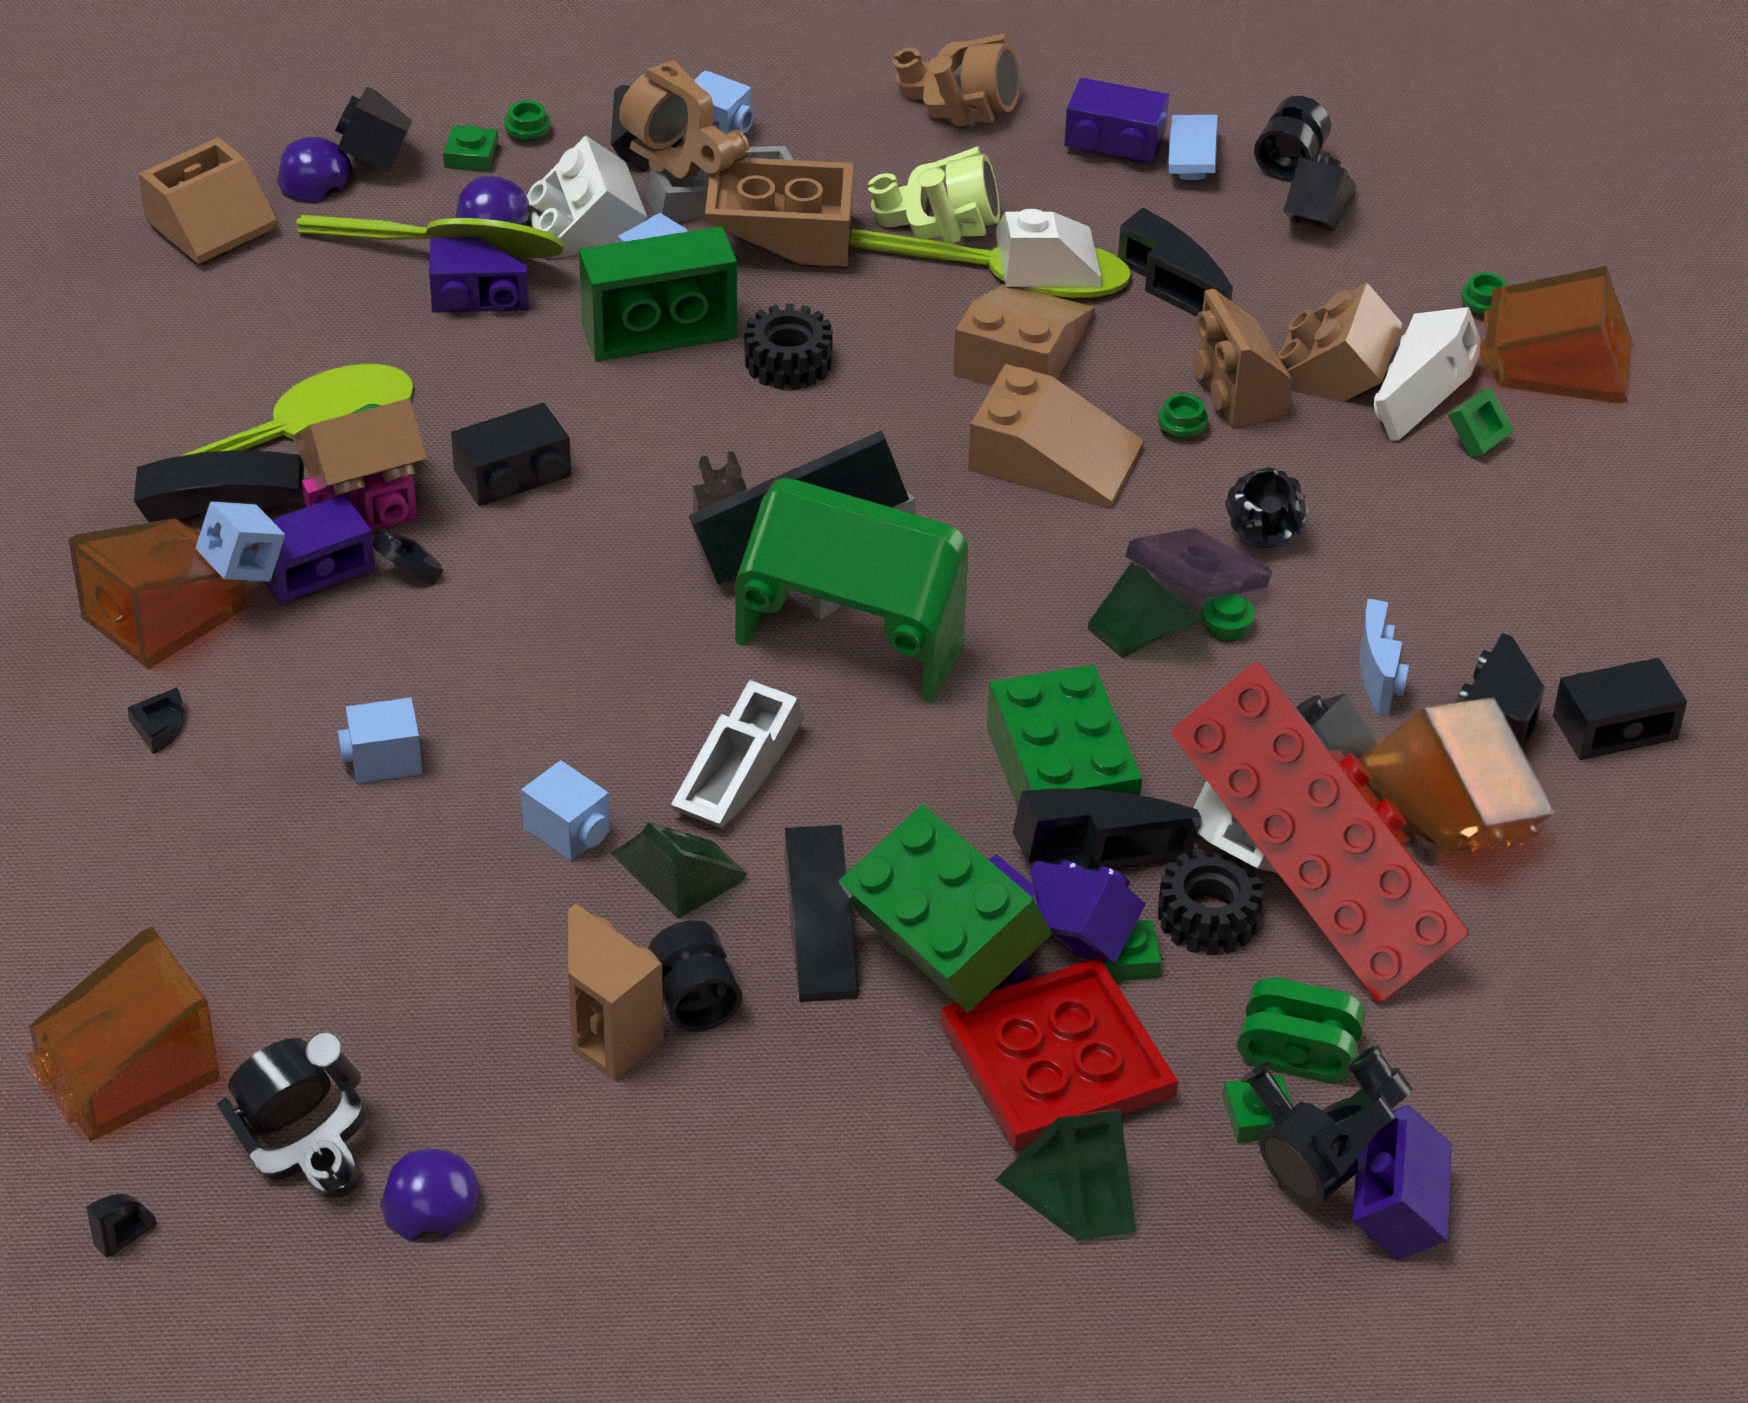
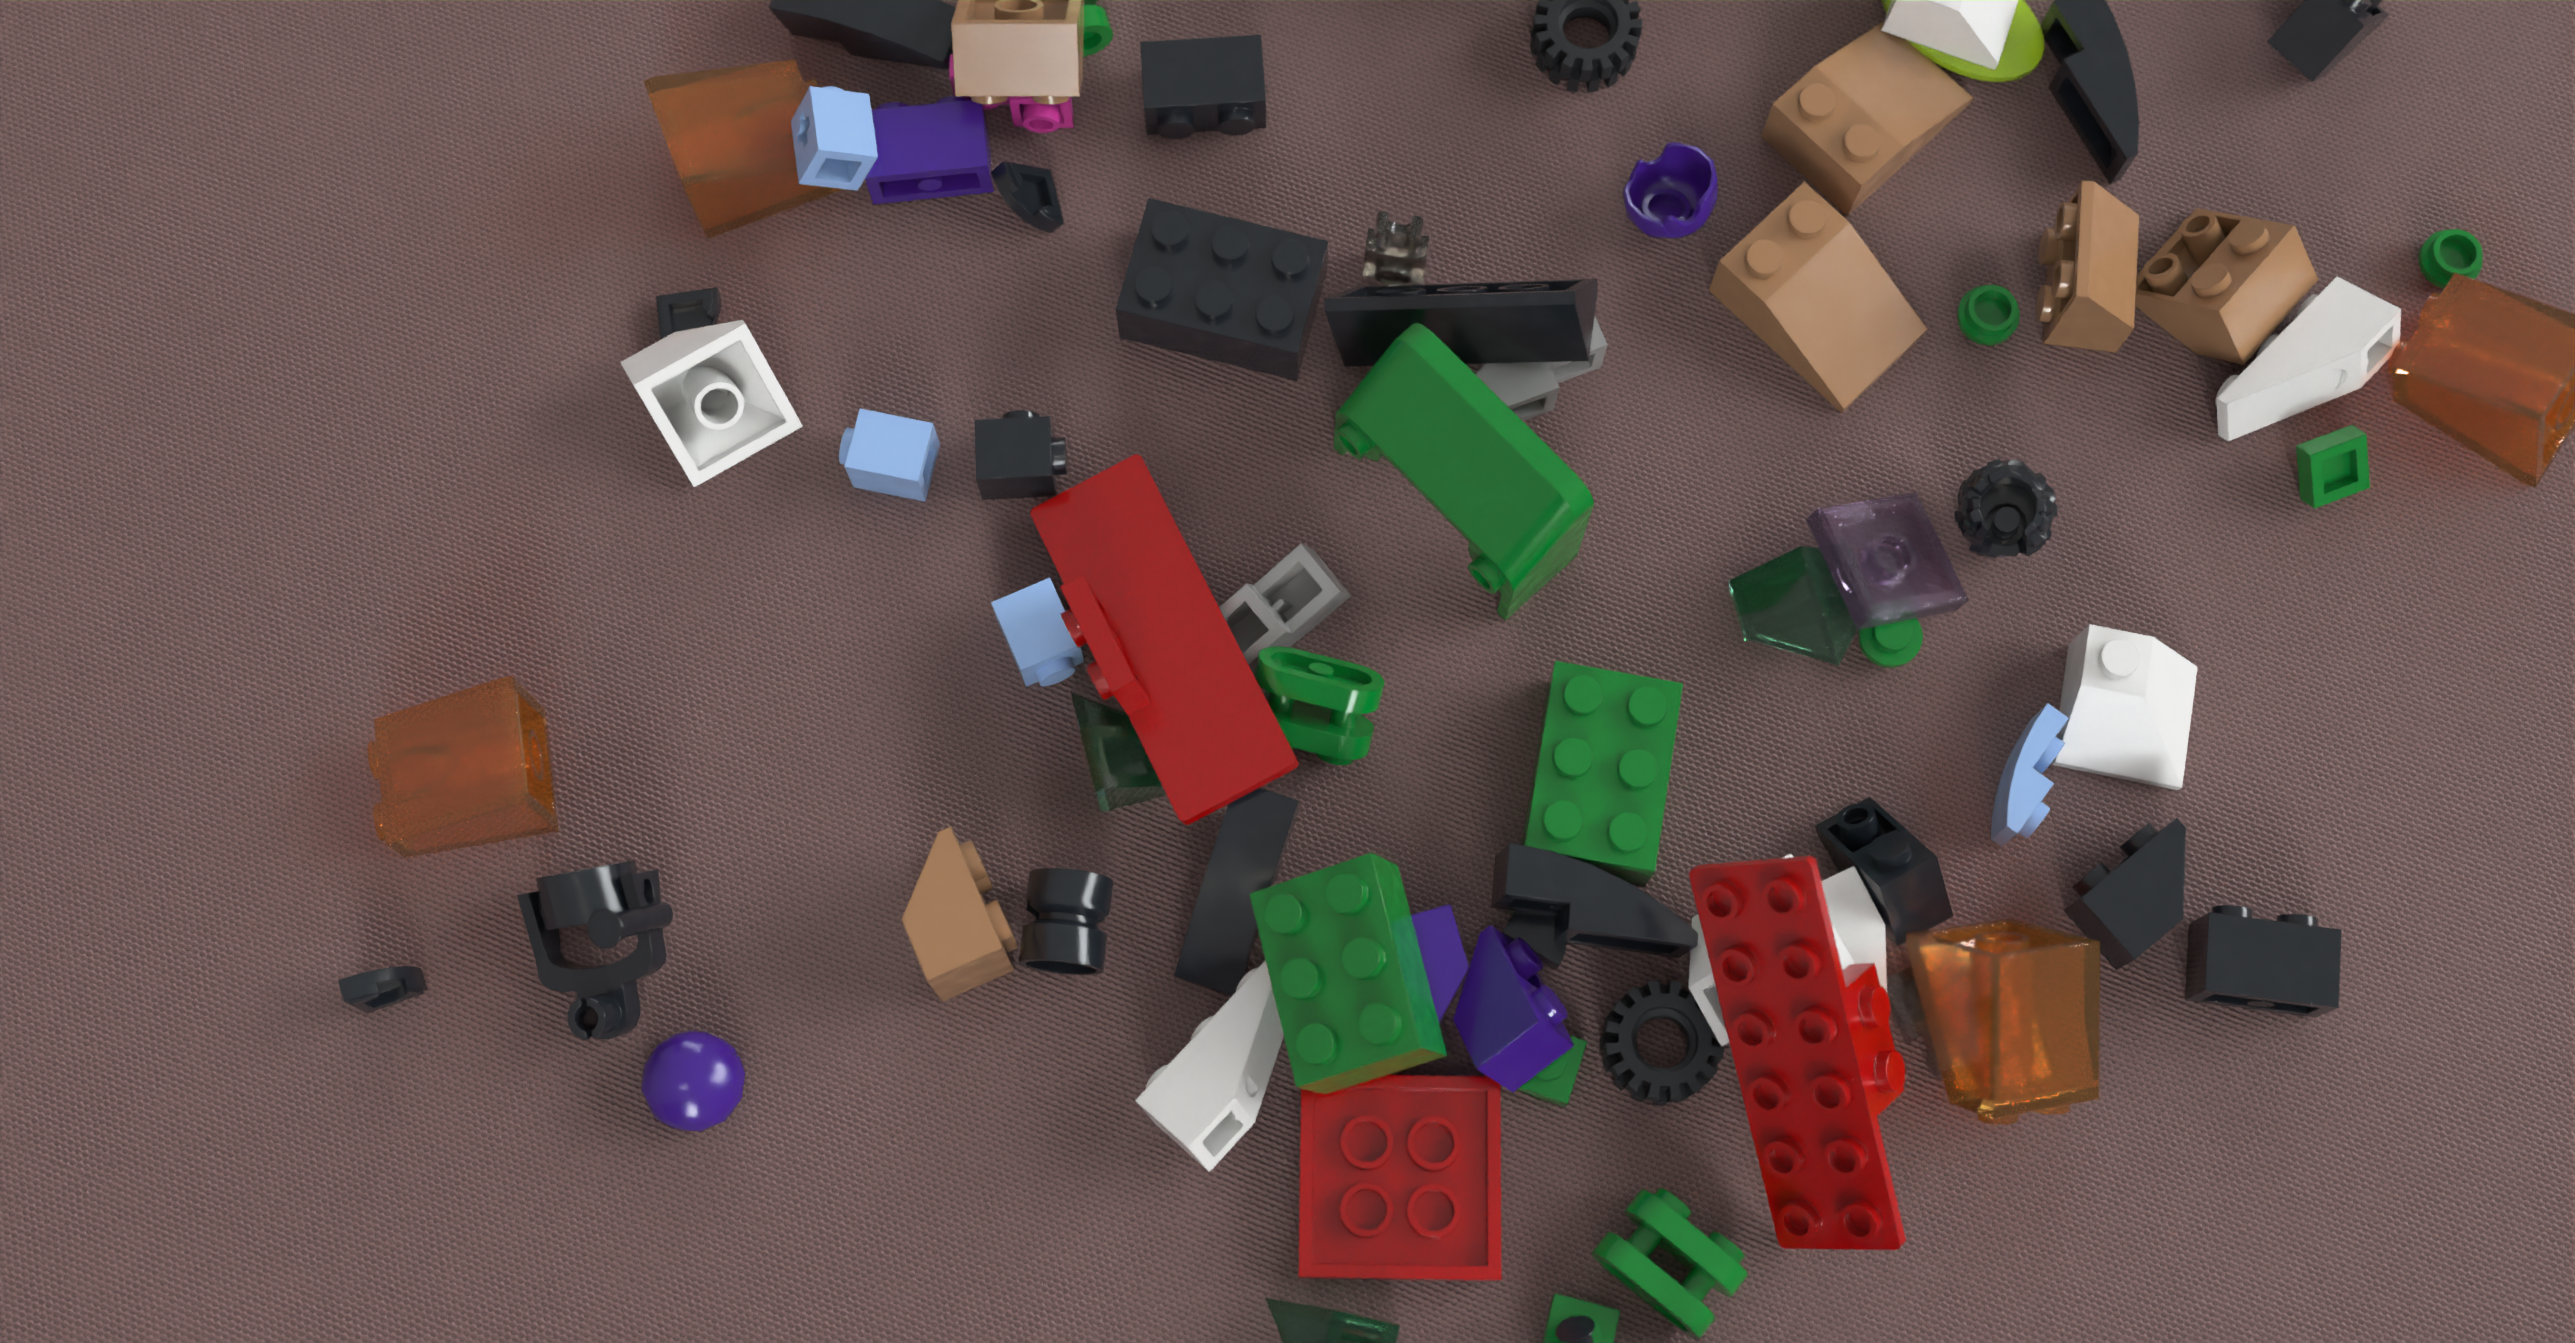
camera: 25 degrees right, 30 degrees up
(210, 748) = (711, 397): none -> white slope
(488, 711) = (1018, 456): none -> black brick
(597, 562) = (1222, 289): none -> black brick
(675, 768) = (1160, 640): none -> red bracket
(794, 803) = (1320, 701): none -> green brick
(875, 1032) = (1221, 1075): none -> white slope
(911, 409) = (1672, 192): none -> dark purple hair
(1425, 596) = (2126, 707): none -> white slope

